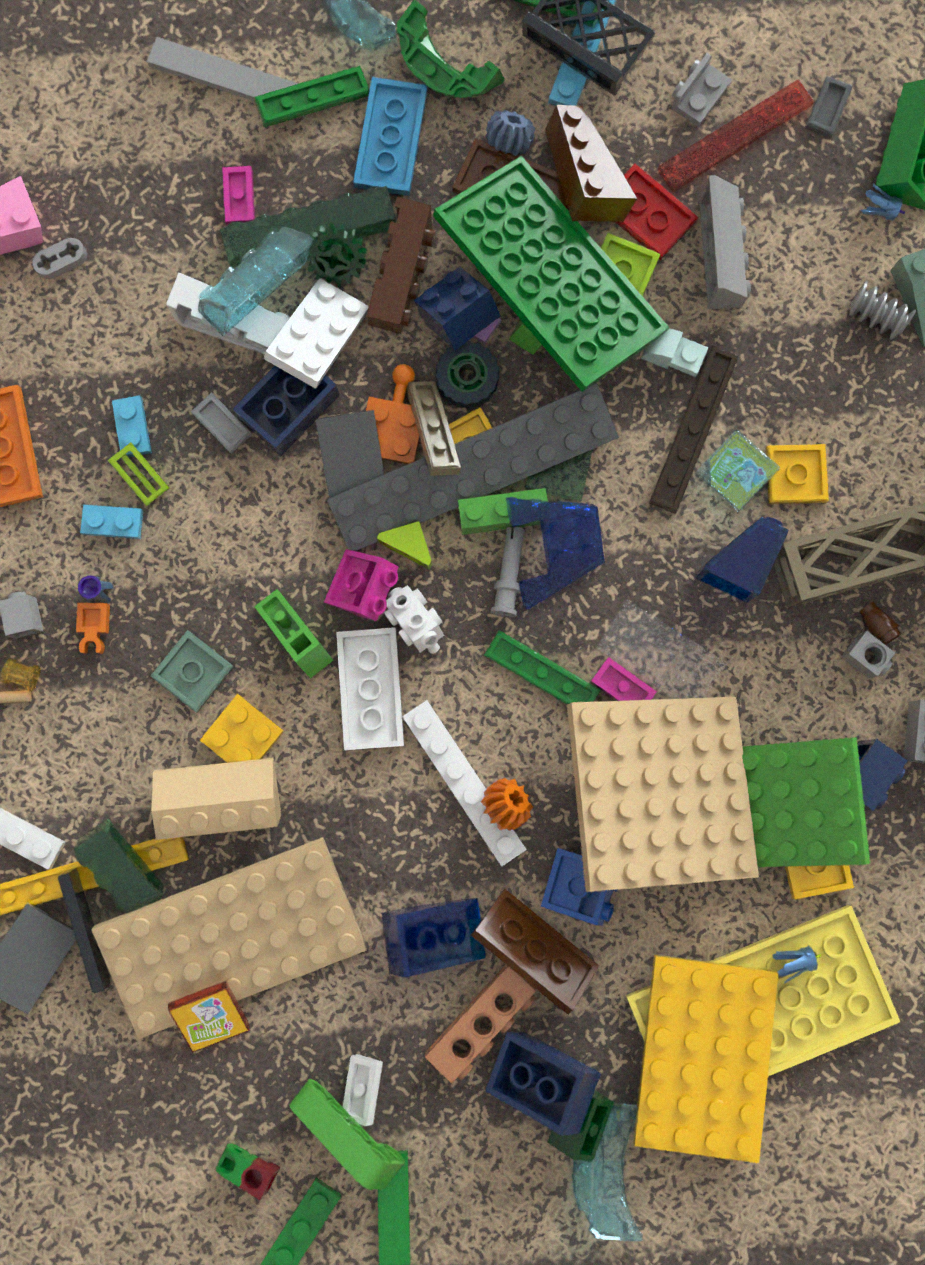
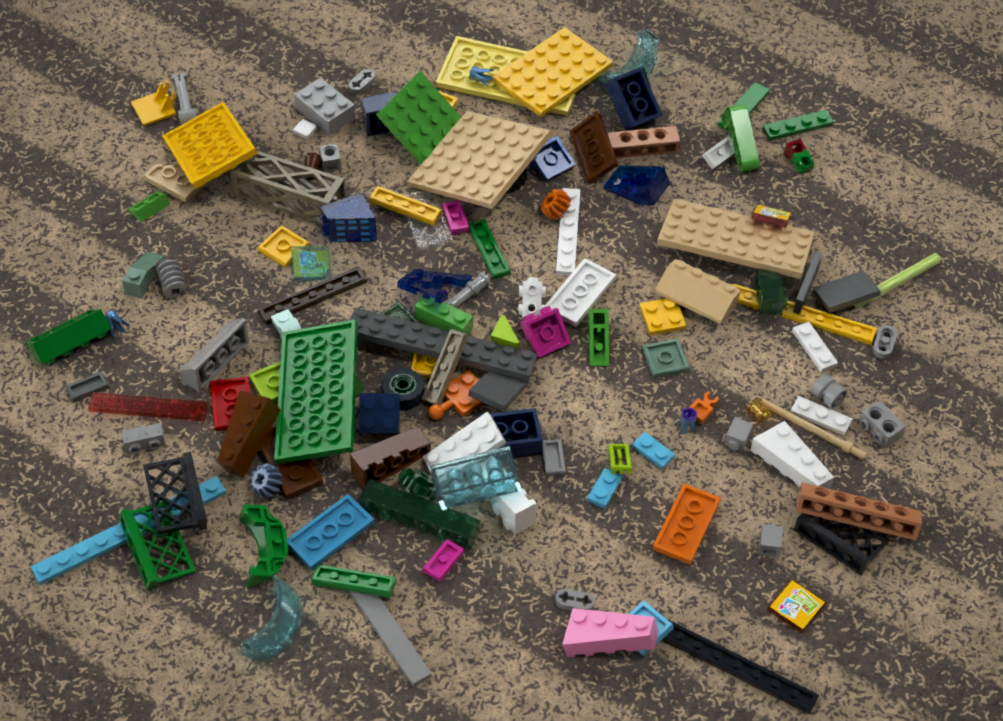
camera: 145 degrees left, 30 degrees down
(701, 650) = (405, 205): none -> yellow tile

